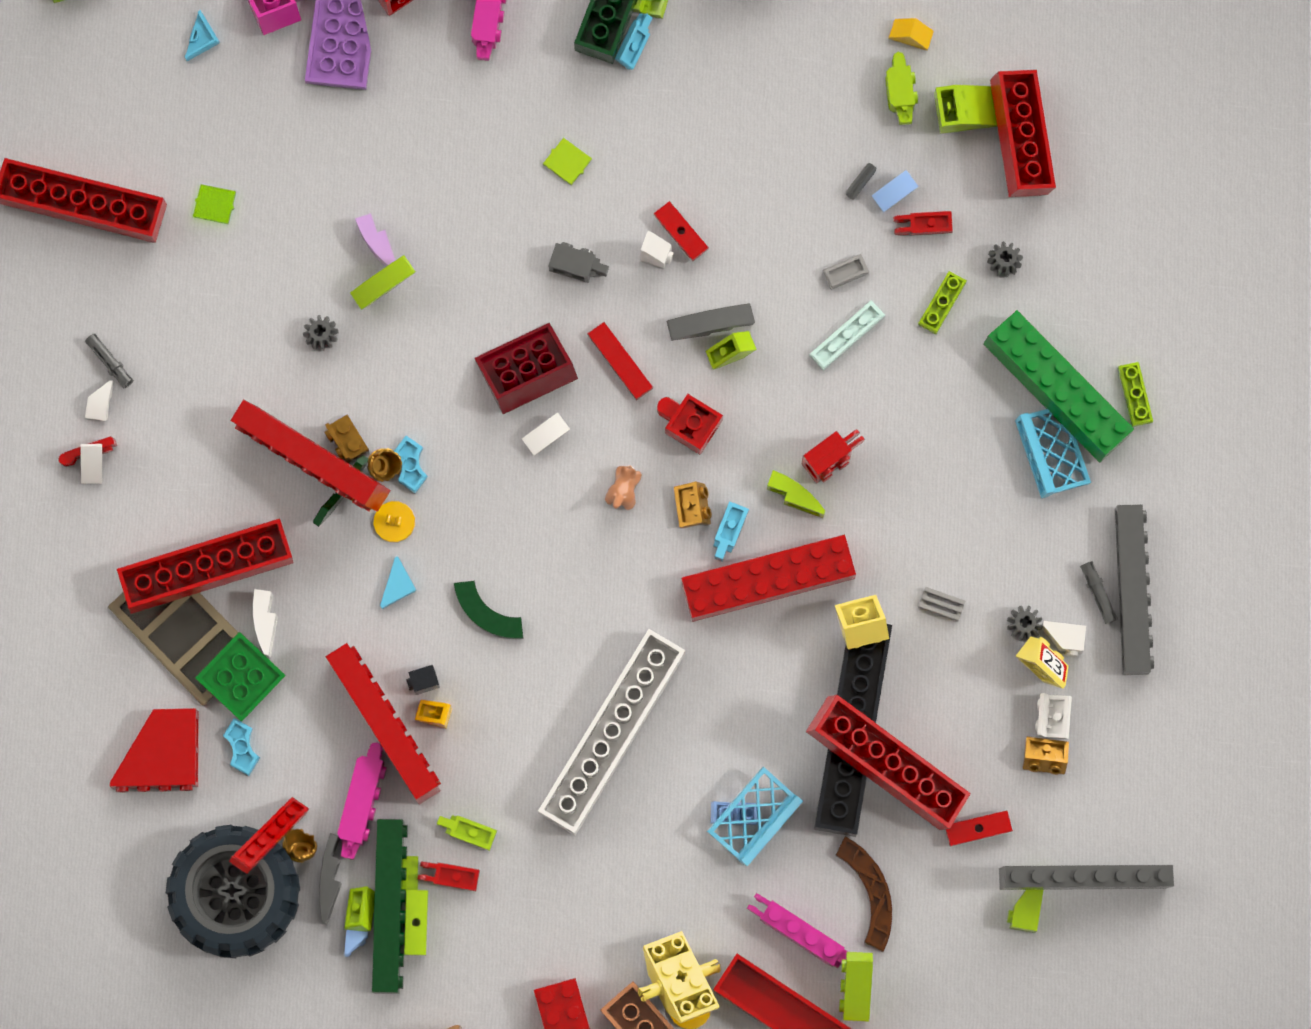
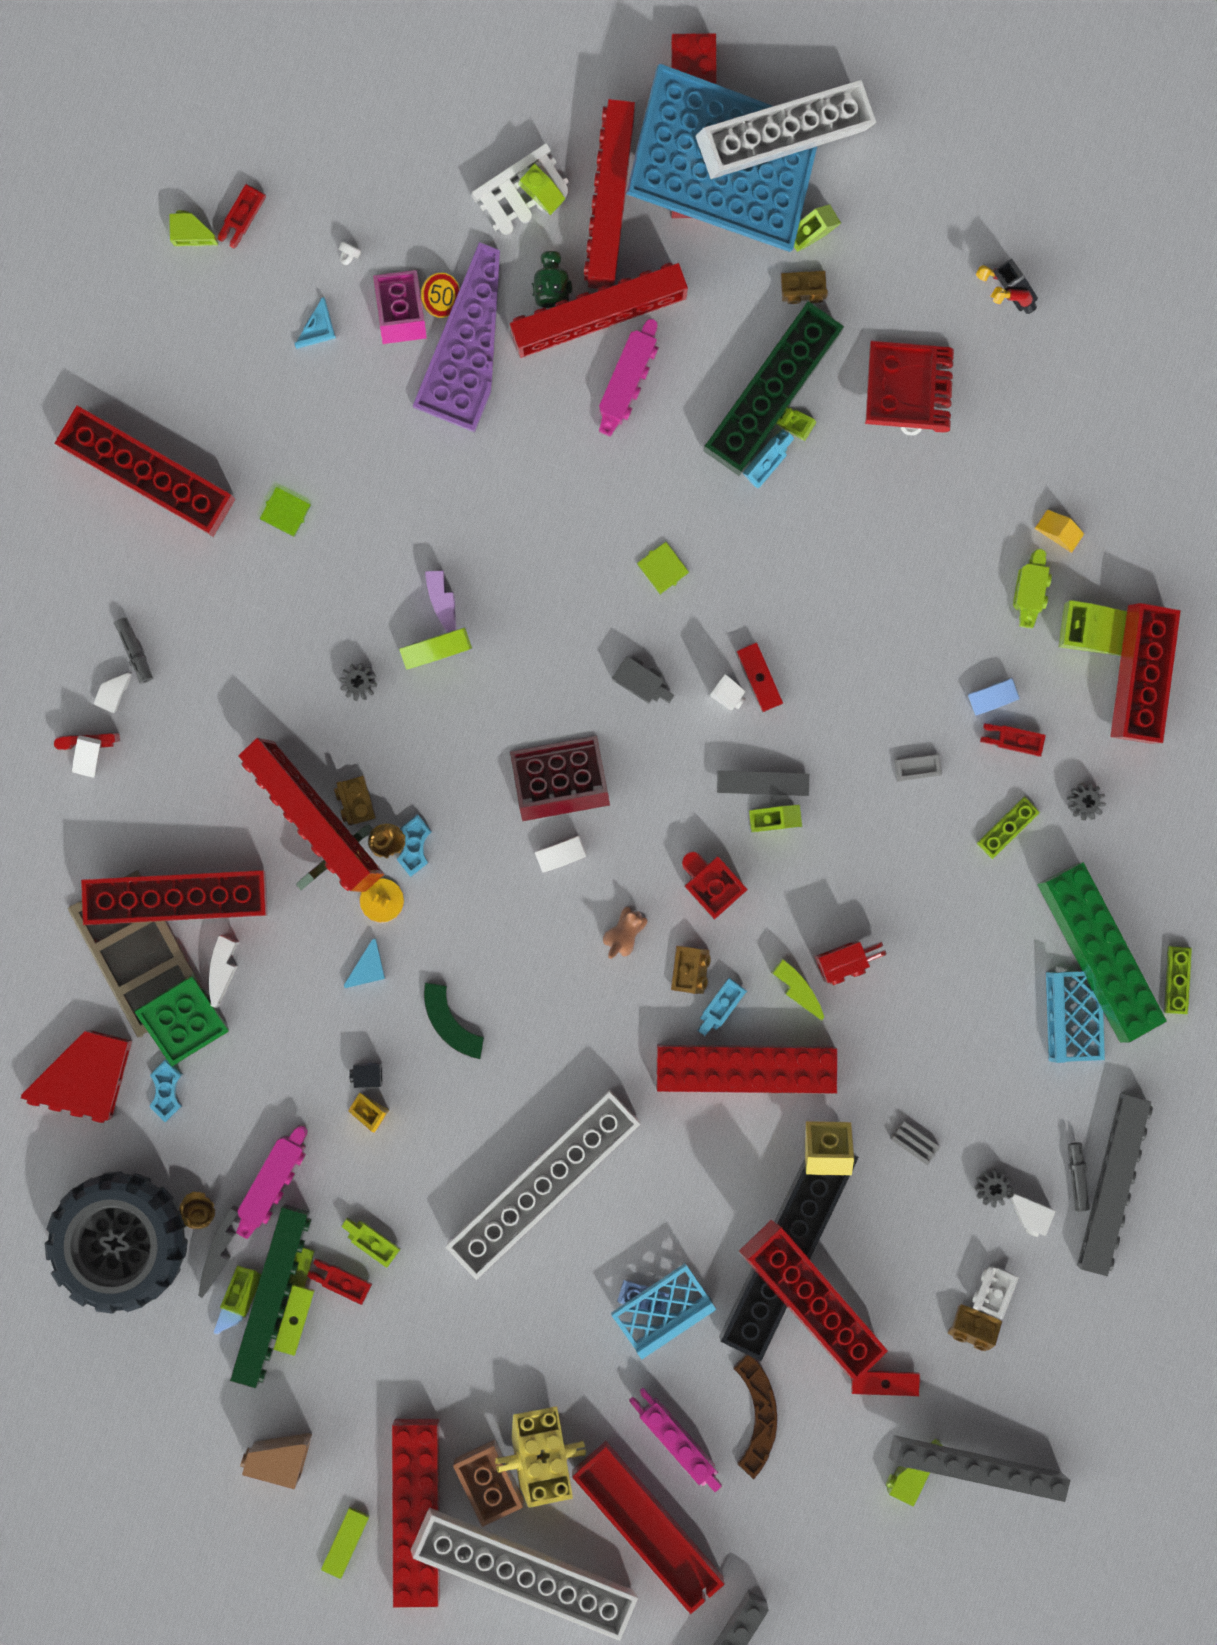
camera: 10 degrees right, 10 degrees up
(269, 835) = (164, 1203): red tile -> none
(380, 718) = (313, 1112): red brick -> none
(620, 361) = (658, 797): red tile -> none
(847, 335) = (900, 835): light aqua tile -> none
(856, 986) = (716, 1512): lime brick -> none
(861, 180) = (961, 675): dark grey axle -> none
(1044, 662) = (1003, 1237): light yellow slope -> none

